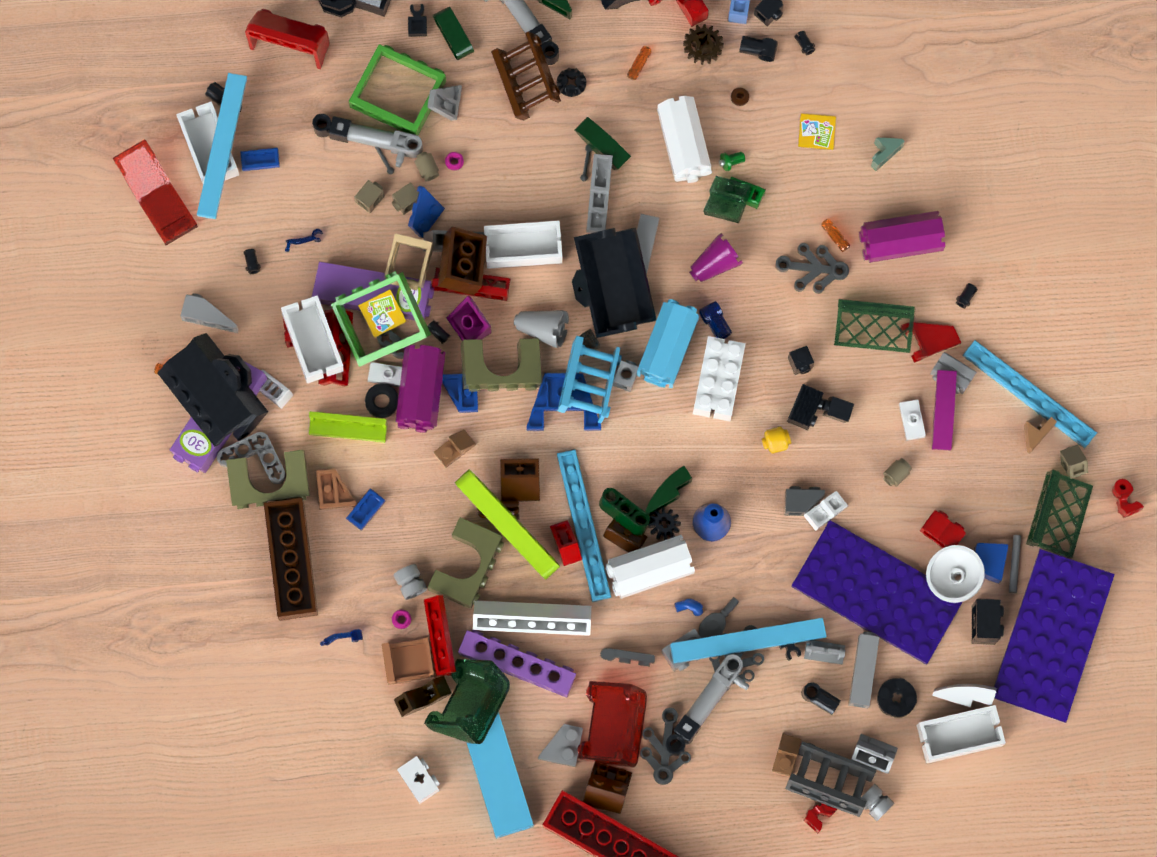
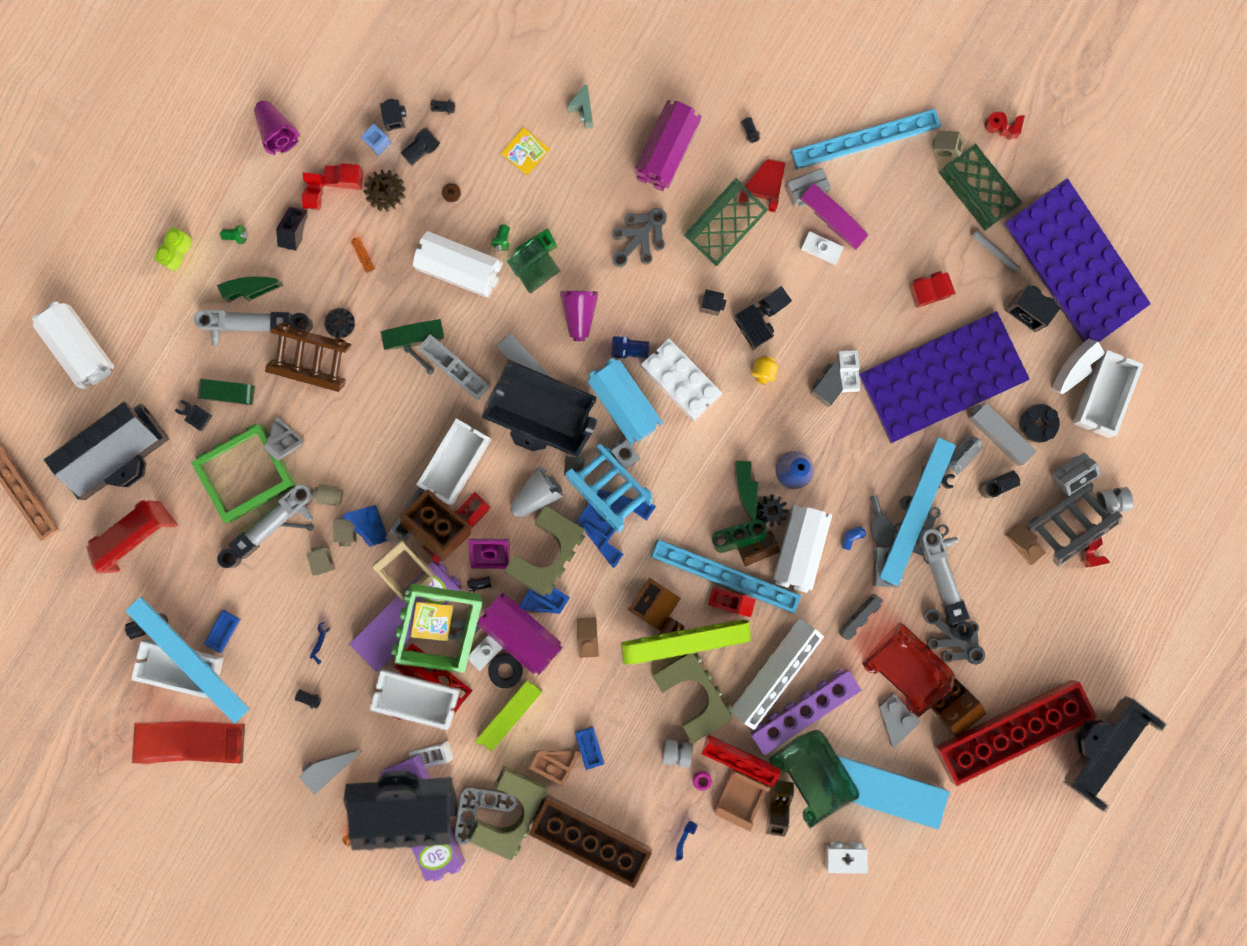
camera: 55 degrees left, 10 degrees up
(454, 155) = (333, 468): dark pink plate -> none
(835, 235) = (624, 199): clear orange axle -> none
(897, 472) = (858, 291): dark tan brick -> none
(947, 565) = (993, 309): white dish -> none
(993, 559) = (980, 271): blue torso -> none
(1034, 436) = (905, 160): medium nougat slope -> none

